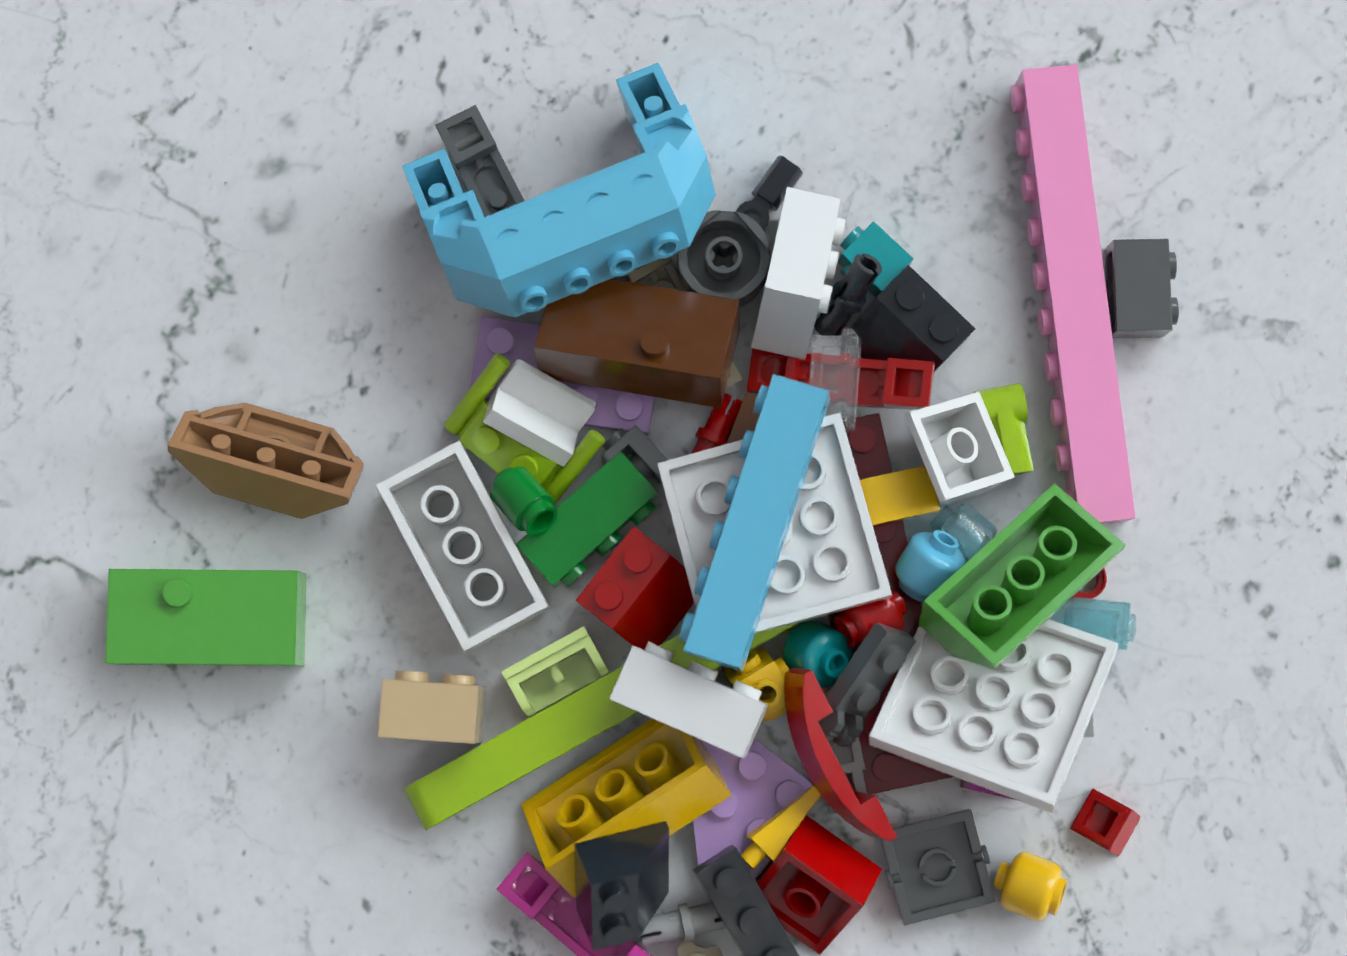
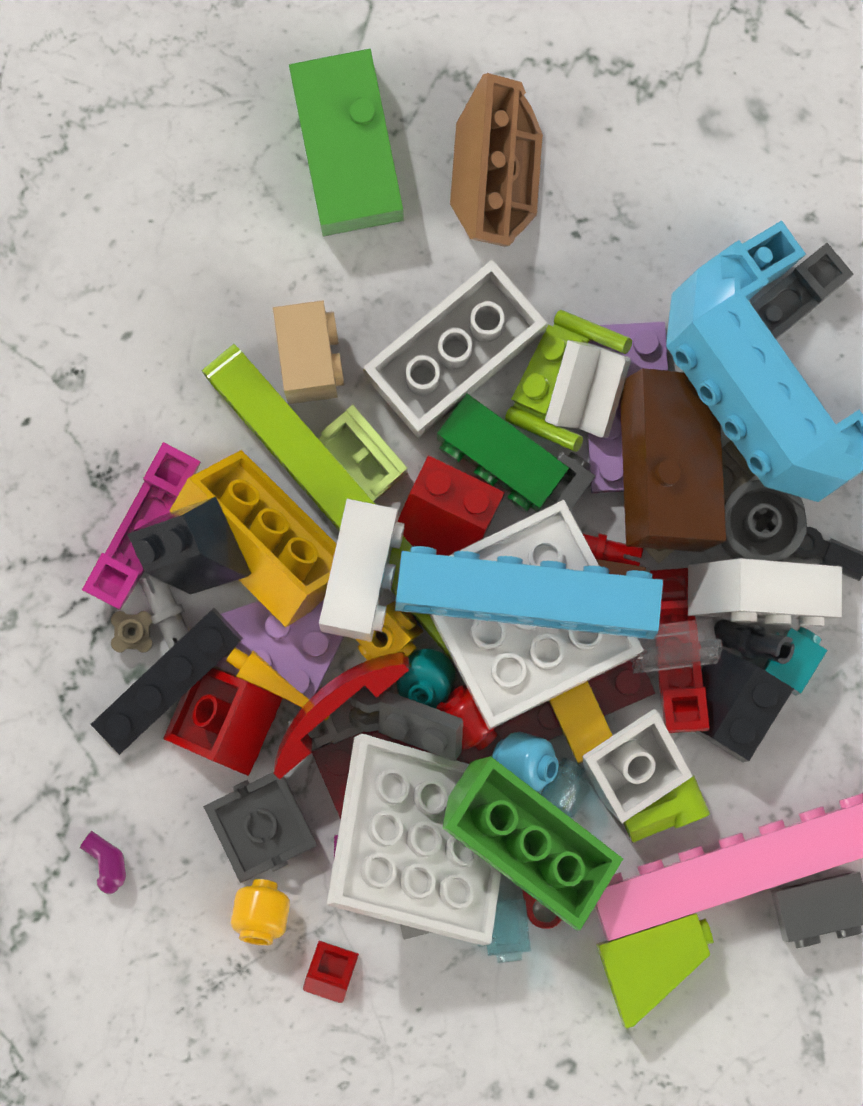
camera: 80 degrees right, 0 degrees up
(523, 500) = (506, 390): green brick -> none
(1167, 477) = (653, 963): none -> lime slope

